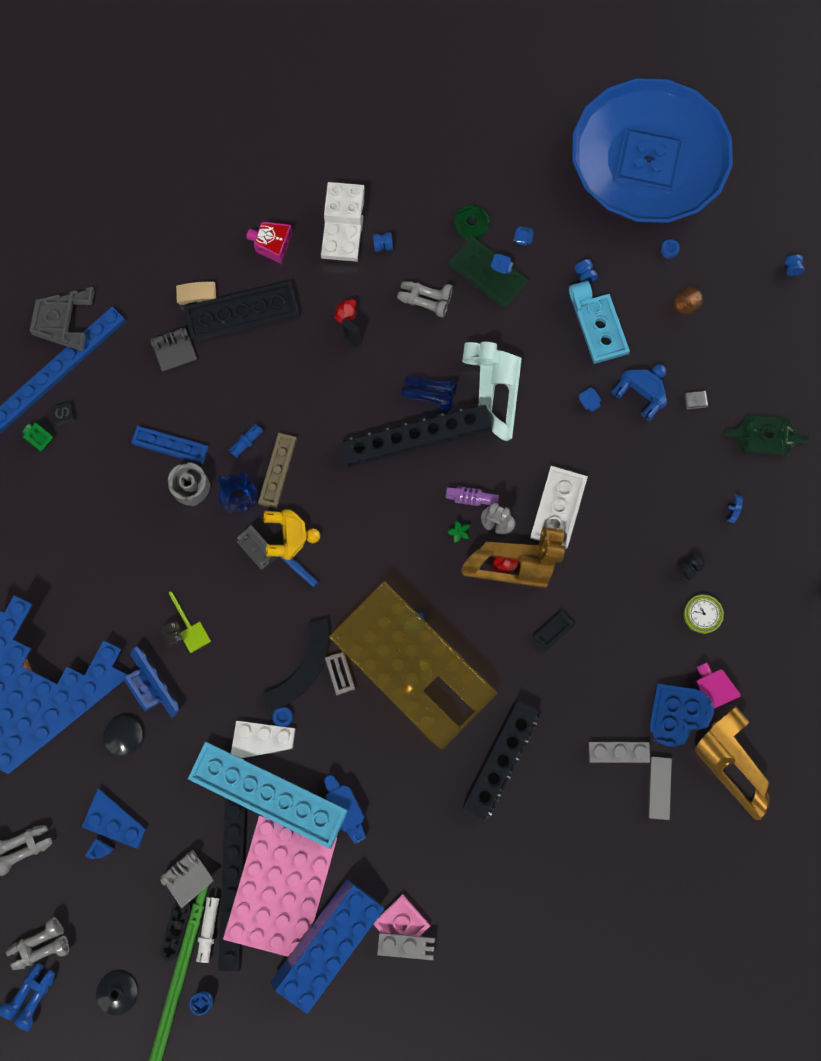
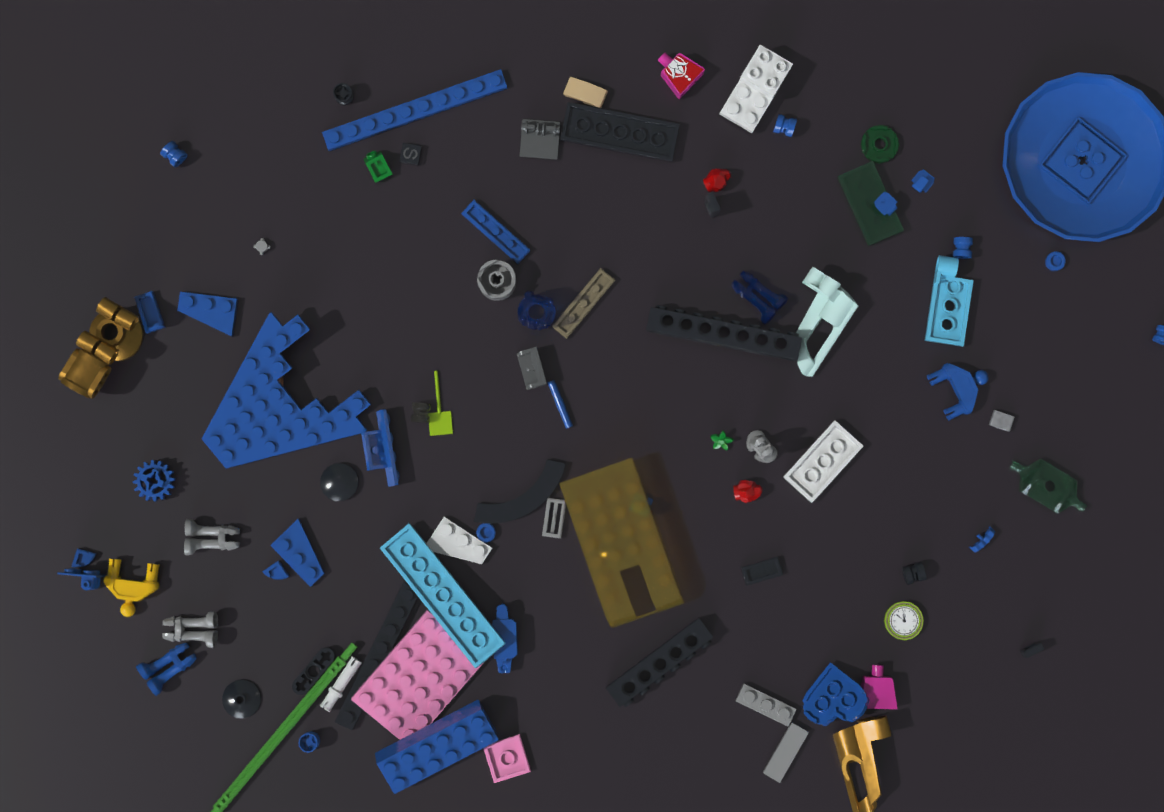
camera: 25 degrees right, 10 degrees up
(53, 316) = (440, 56): dark grey wing -> none
(186, 878) = (341, 633): light grey hinge -> none
(245, 440) = (567, 261): blue pin -> none
(293, 534) = (570, 373): yellow connector -> none
(405, 946) = (501, 778): light grey hinge -> none
(415, 288) = (806, 216): light grey piece -> none
(471, 496) = (748, 413): medium lavender hinge -> none
(535, 561) = (776, 502): pearl gold panel -> none
(590, 399) = (903, 374): blue piece -> none
(688, 300) = (1044, 322): clear orange head -> none

